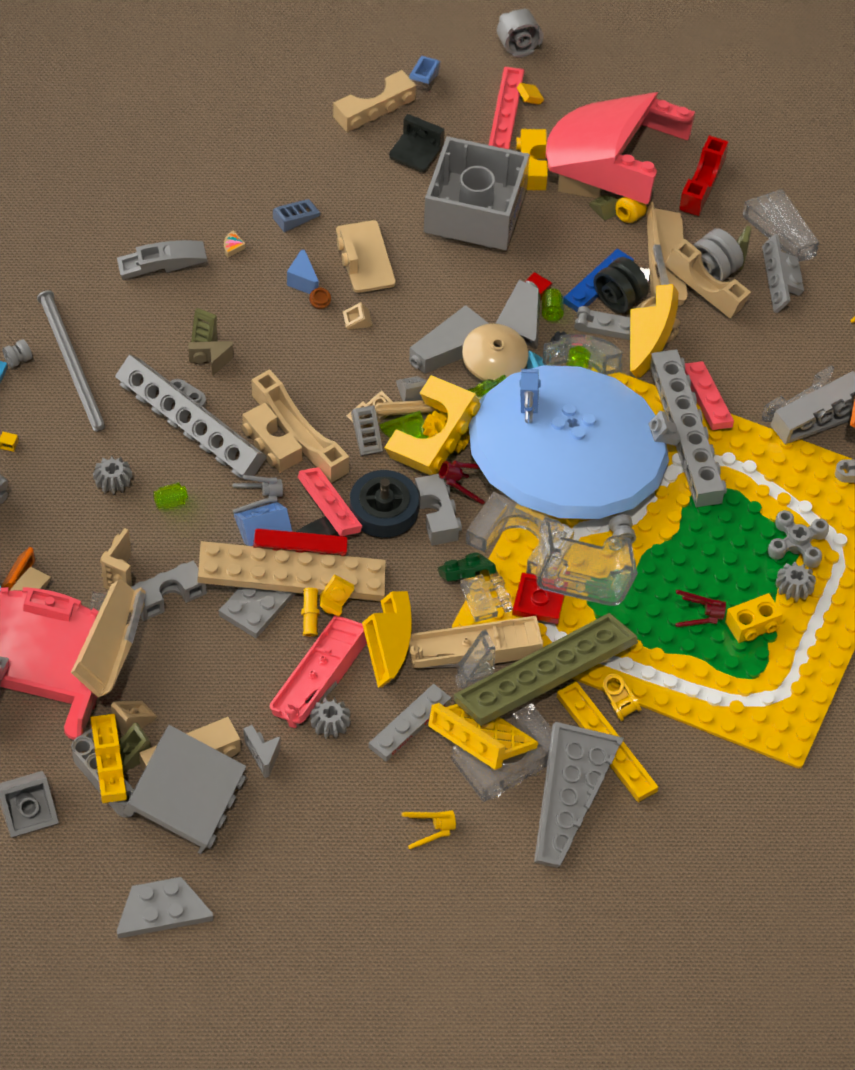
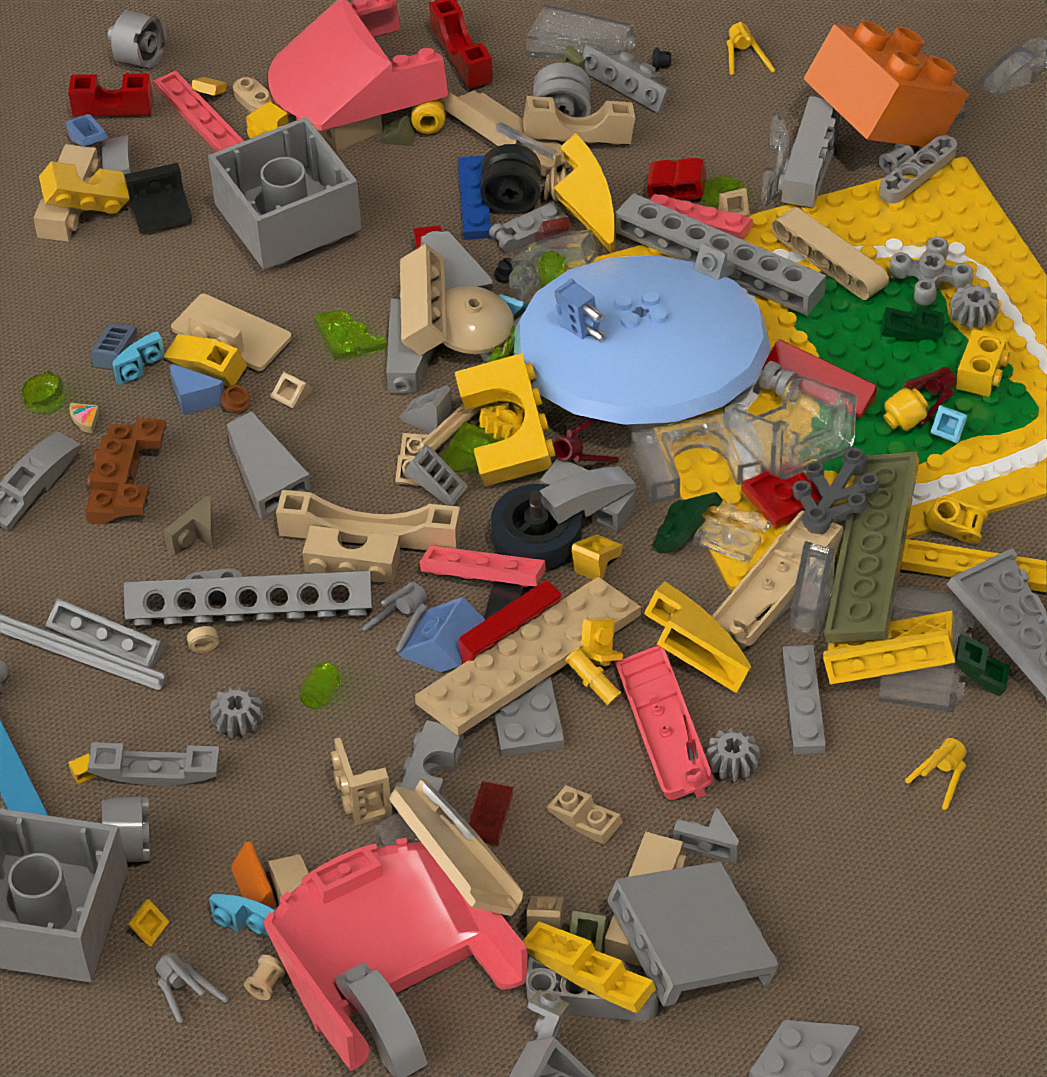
camera: 40 degrees left, 5 degrees down
(39, 467) = (153, 768): none -> light grey slope
(66, 766) = (552, 1013): none -> light grey bracket
(102, 377) = (104, 634): none -> light grey slope
(143, 421) = (203, 639): none -> tan tile
(171, 639) = (491, 811): none -> clear red plate
(204, 331) = (163, 509): olive slope -> none
(211, 288) = (116, 468): none -> dark orange bracket
(218, 682) = (581, 814): none -> tan slope
(224, 213) = (43, 392): none -> clear neon green hair
(288, 348) = (264, 464): none -> light grey slope
(289, 231) = (139, 354): none -> medium azure slope
(330, 263) = (207, 357): none -> yellow slope
(362, 98) = (65, 188): none -> yellow arch
(398, 544) = (593, 554): none -> yellow slope
(422, 307) = (345, 335): none -> clear neon green wing
(425, 99) = (117, 154): none -> light grey slope
(425, 504) = (585, 492): none -> light grey slope
(453, 51) = (91, 98): none -> red arch
(473, 318) = (422, 299): none -> tan brick
(521, 786) = (977, 665): none -> dark green slope
(535, 626) = (819, 518): none -> dark grey plant
(549, 116) = (251, 93): none -> tan plate
(552, 305) = (471, 243): clear neon green brick -> none
(607, 335) = (553, 227): none -> clear red tile
(649, 551) = (824, 372): none -> red slope
(671, 608) = (905, 409): none -> yellow head
(687, 637) = (948, 424): none -> medium azure slope
(724, 362) = (677, 179): none -> red brick
(738, 404) = (734, 202): none -> tan slope
(742, 385) = (713, 188): none -> clear neon green gear
(747, 563) = (906, 325): none -> dark green slope
(752, 479) = (830, 253): none -> tan beam
(817, 278) = (661, 58): none -> black piece

